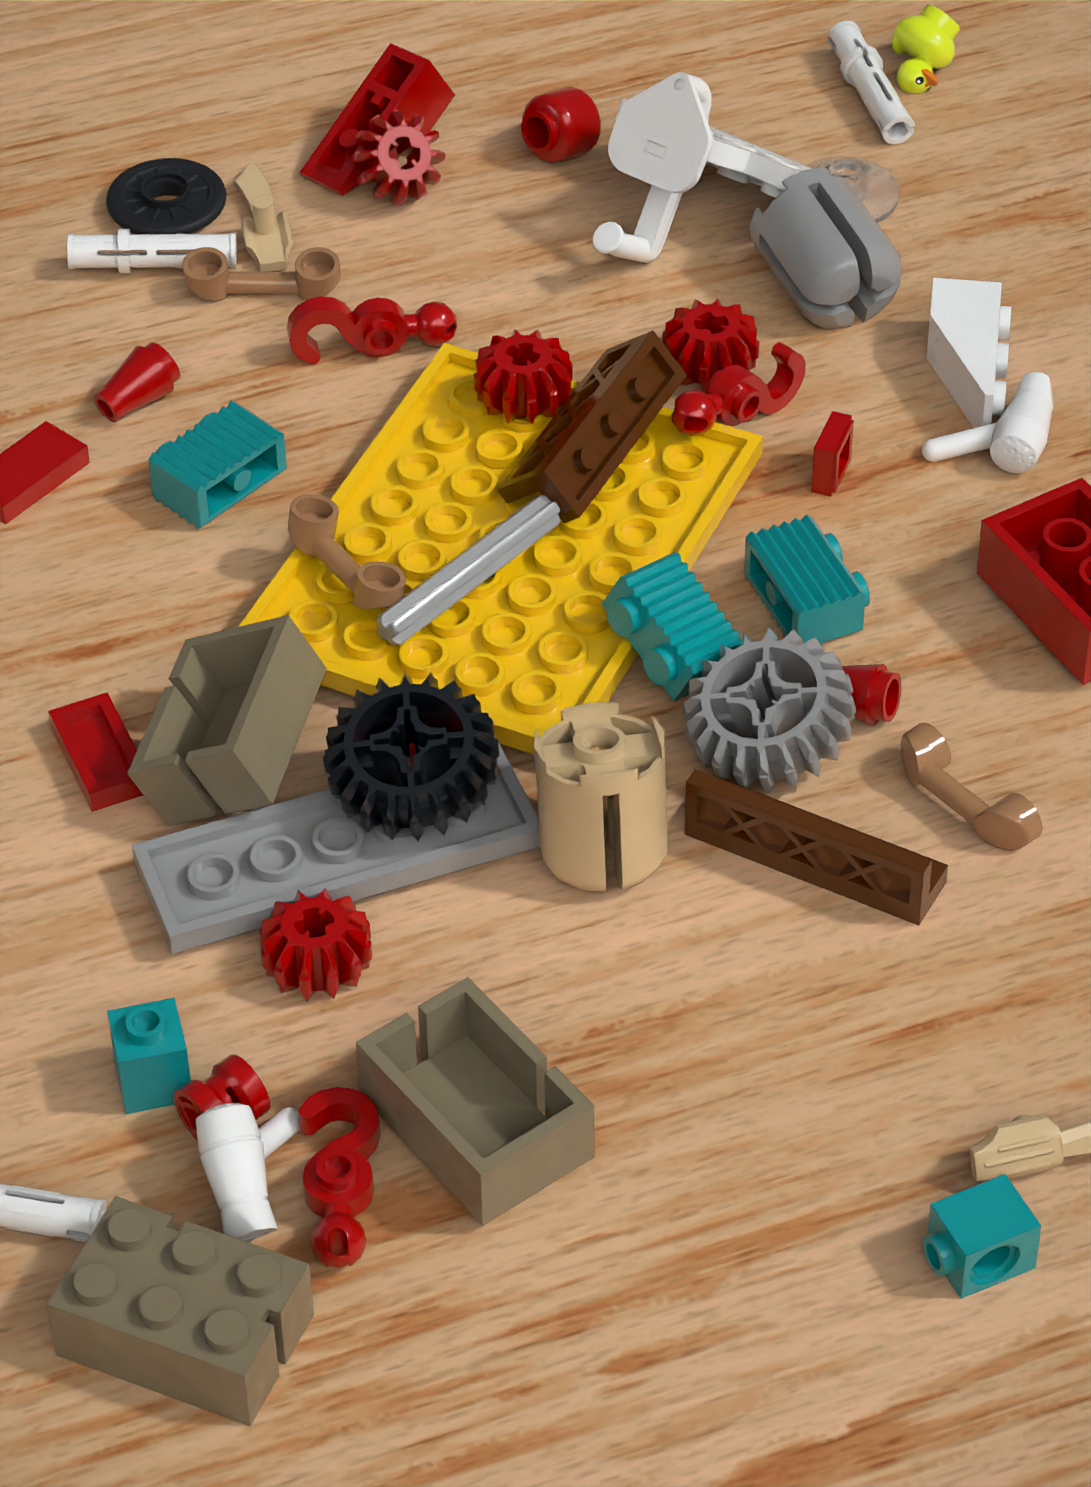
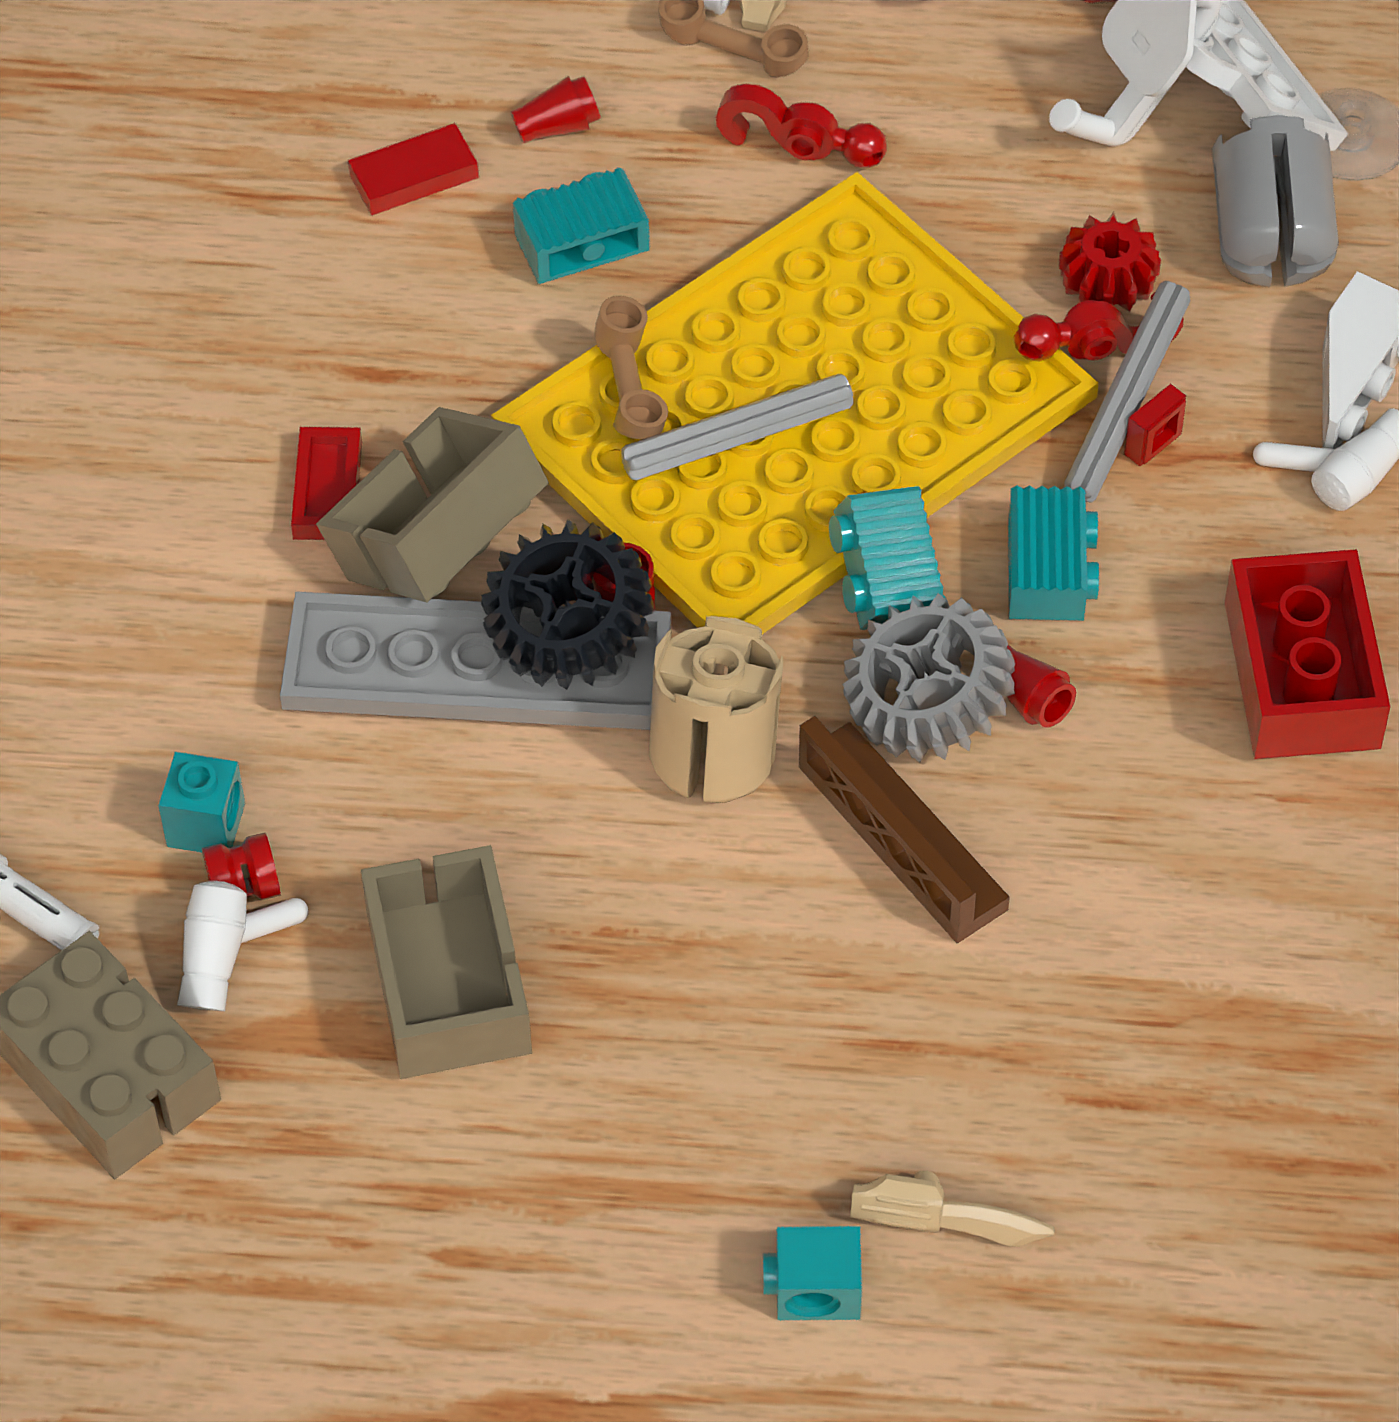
camera: 25 degrees right, 10 degrees up
(315, 944) = (402, 751): red gear -> none
(339, 1175) = (300, 983): red piece -> none
(523, 376) = (897, 240): red gear -> none
(597, 426) = (938, 319): reddish brown fence -> none
(796, 423) = (1128, 389): none -> light grey axle
(1005, 825) = (1088, 874): medium nougat bar -> none

